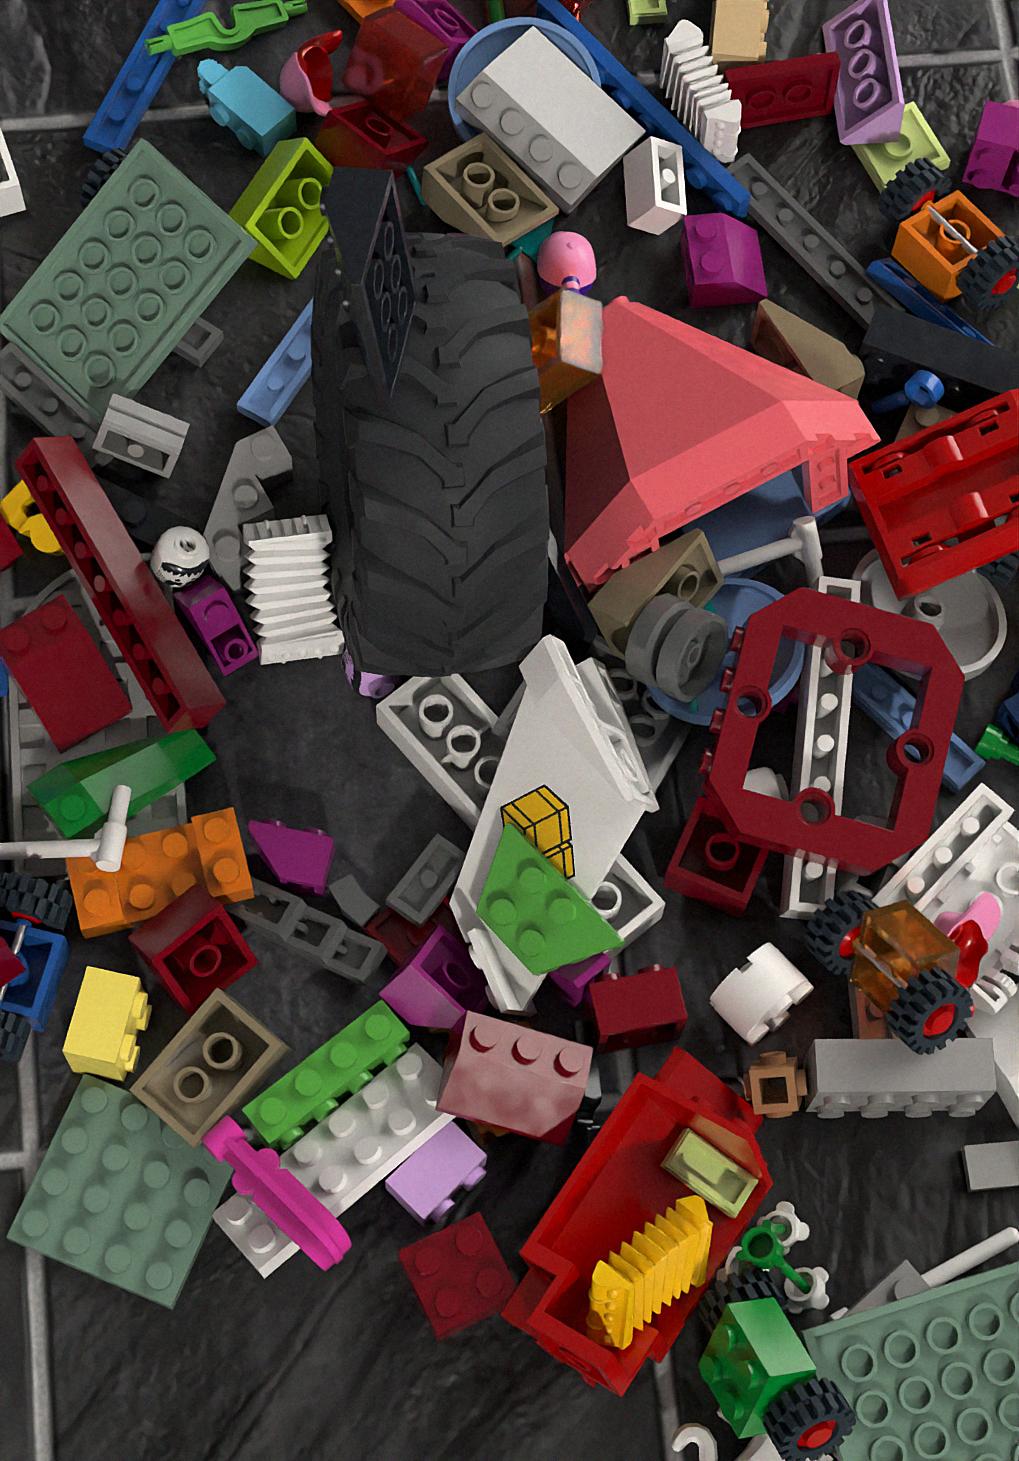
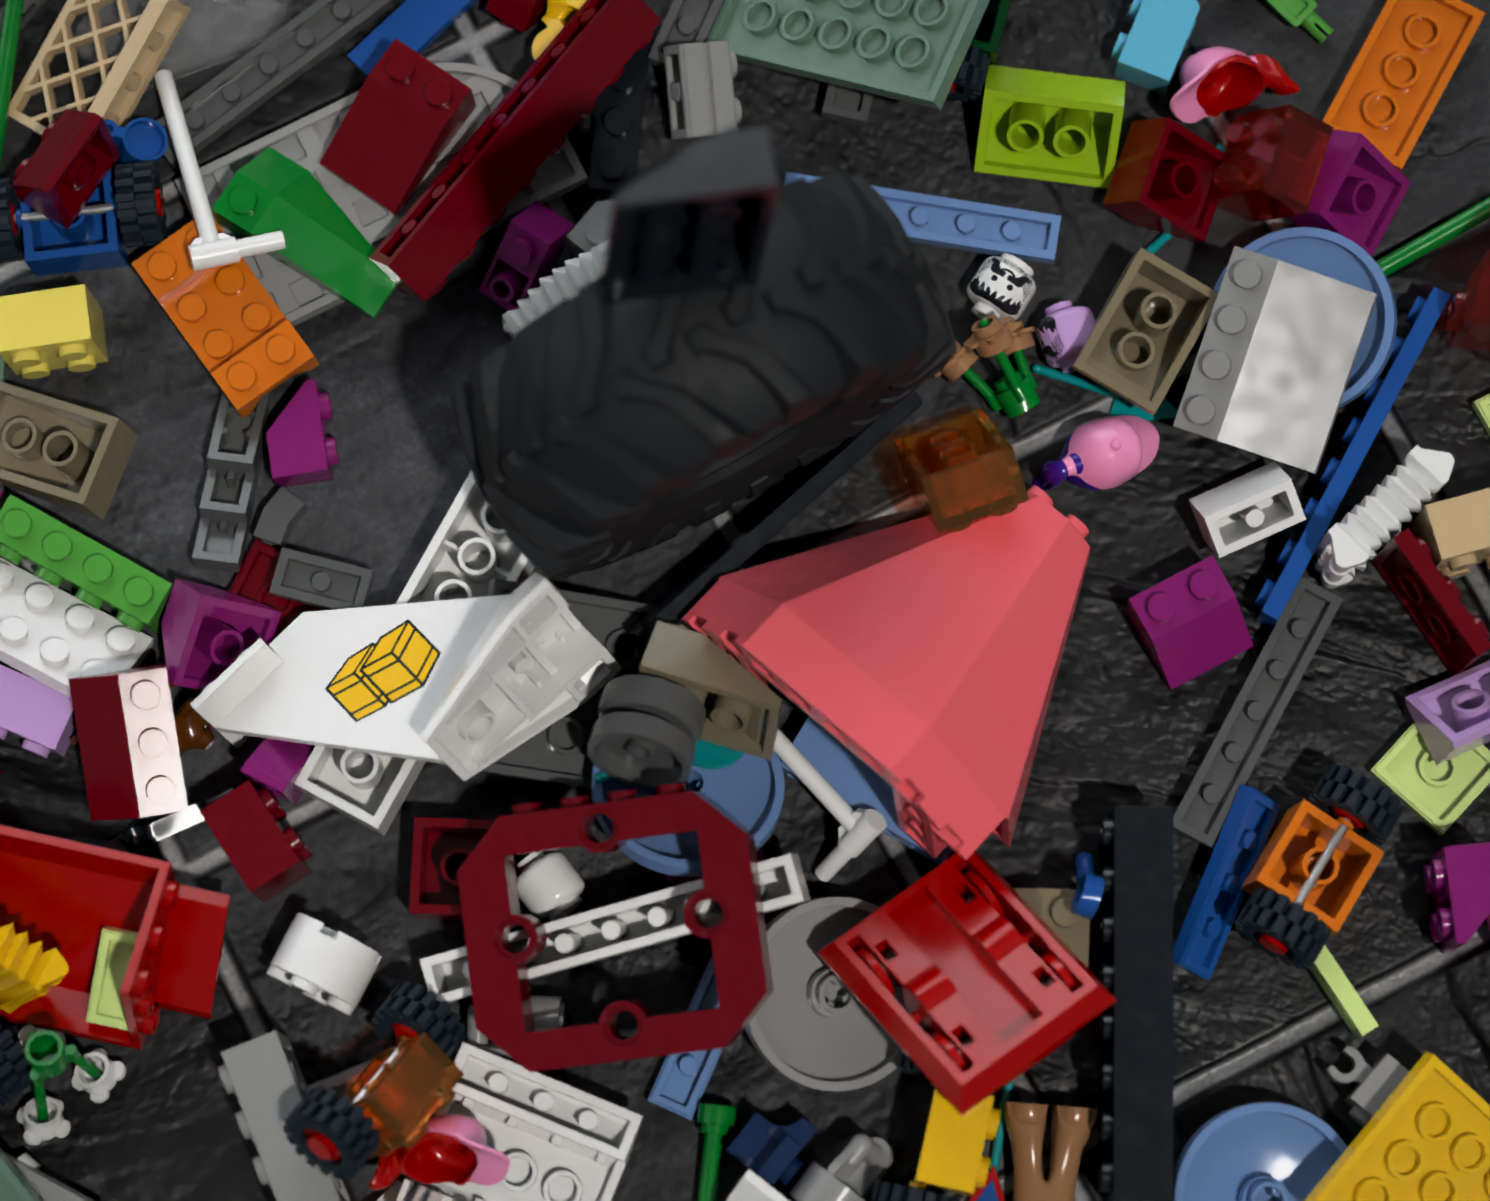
camera: 80 degrees right, 10 degrees up
(180, 556) = (556, 180): white head -> none
(193, 948) = (154, 380): dark red brick -> none
(539, 909) = (312, 700): bright green wing -> none
(773, 1100) = (235, 1012): medium nougat brick -> none
(805, 349) = (1076, 773): dark tan slope -> none

